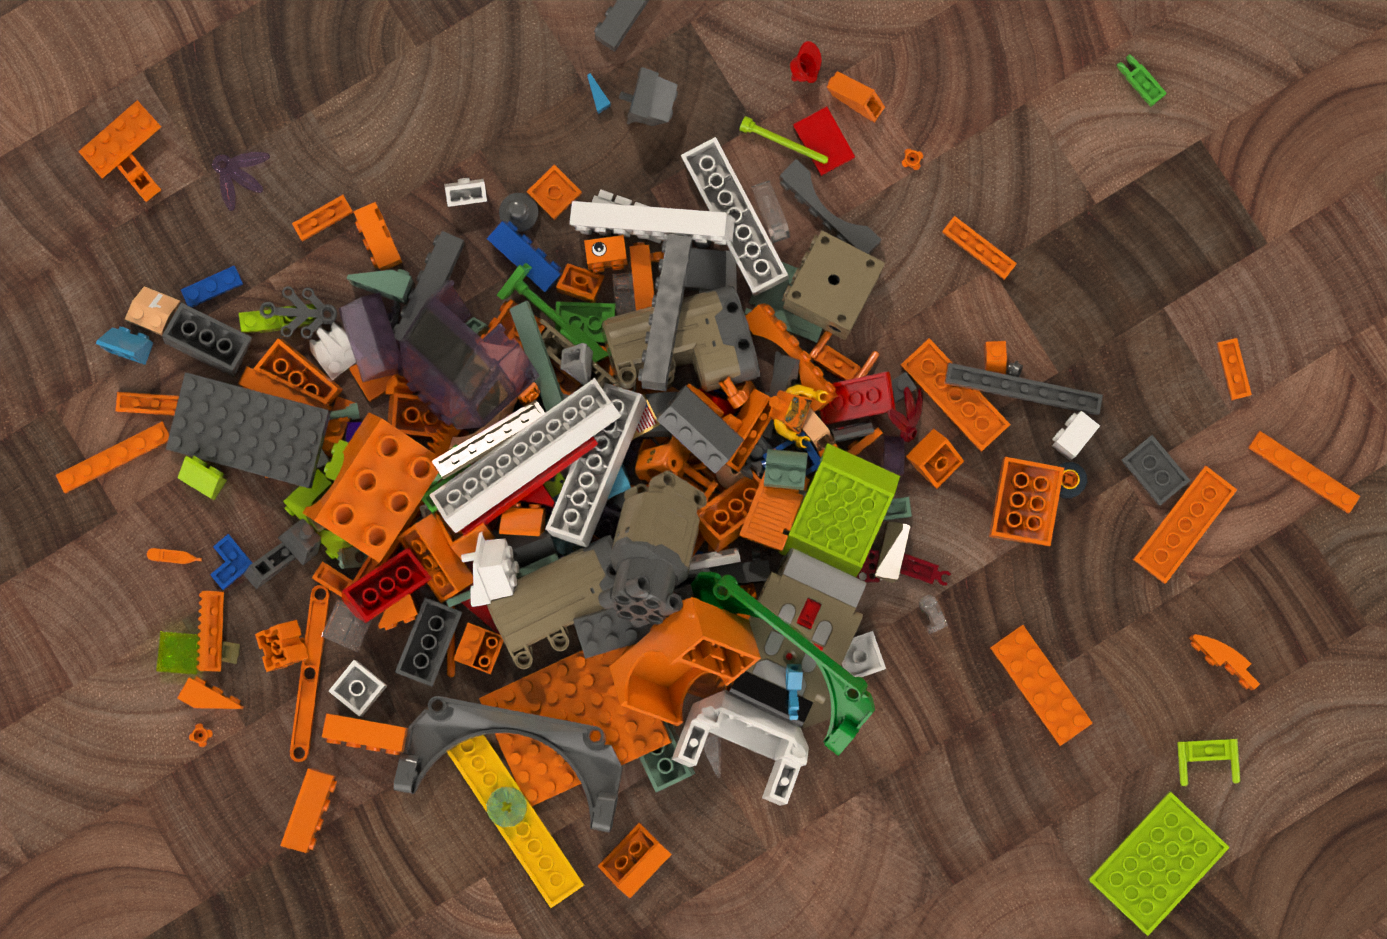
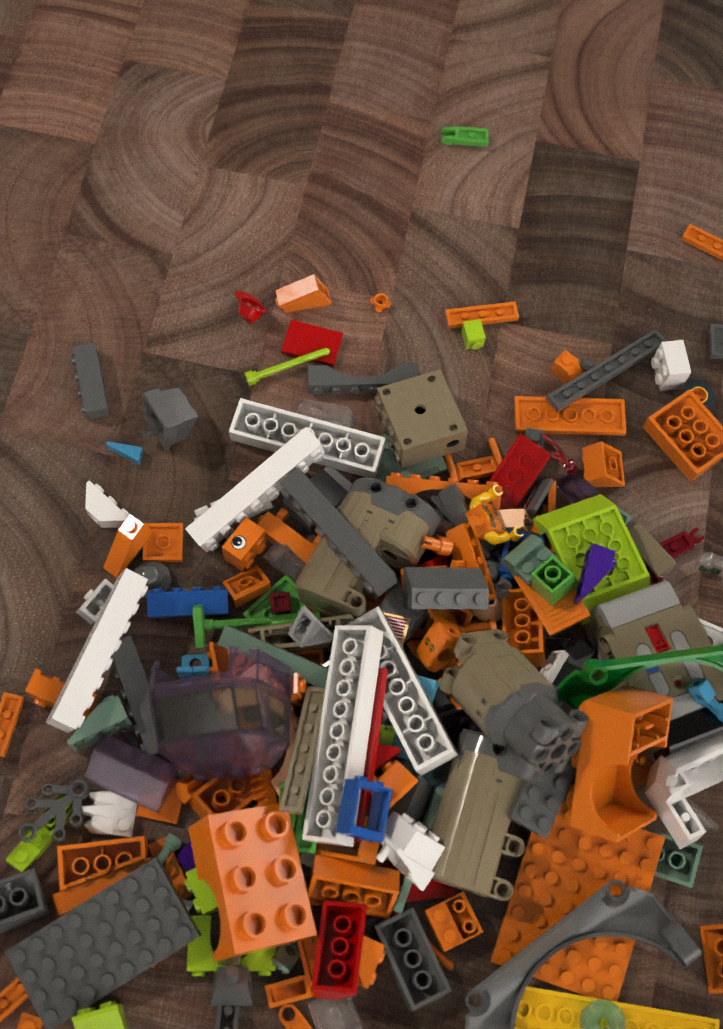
camera: 55 degrees left, 15 degrees down
(427, 231) = (96, 652): none -> white brick
(480, 311) = (188, 672): none -> dark azure piece
(489, 530) = (378, 812): none -> blue window
(525, 169) = (126, 545): none -> orange slope
(536, 123) = (103, 508): none -> white slope
(588, 320) = (280, 603): none -> dark red tile
(780, 500) = (552, 580): none -> bright green head
(821, 523) = (596, 565): none -> dark purple slope
(953, 257) = (473, 334): none -> lime brick

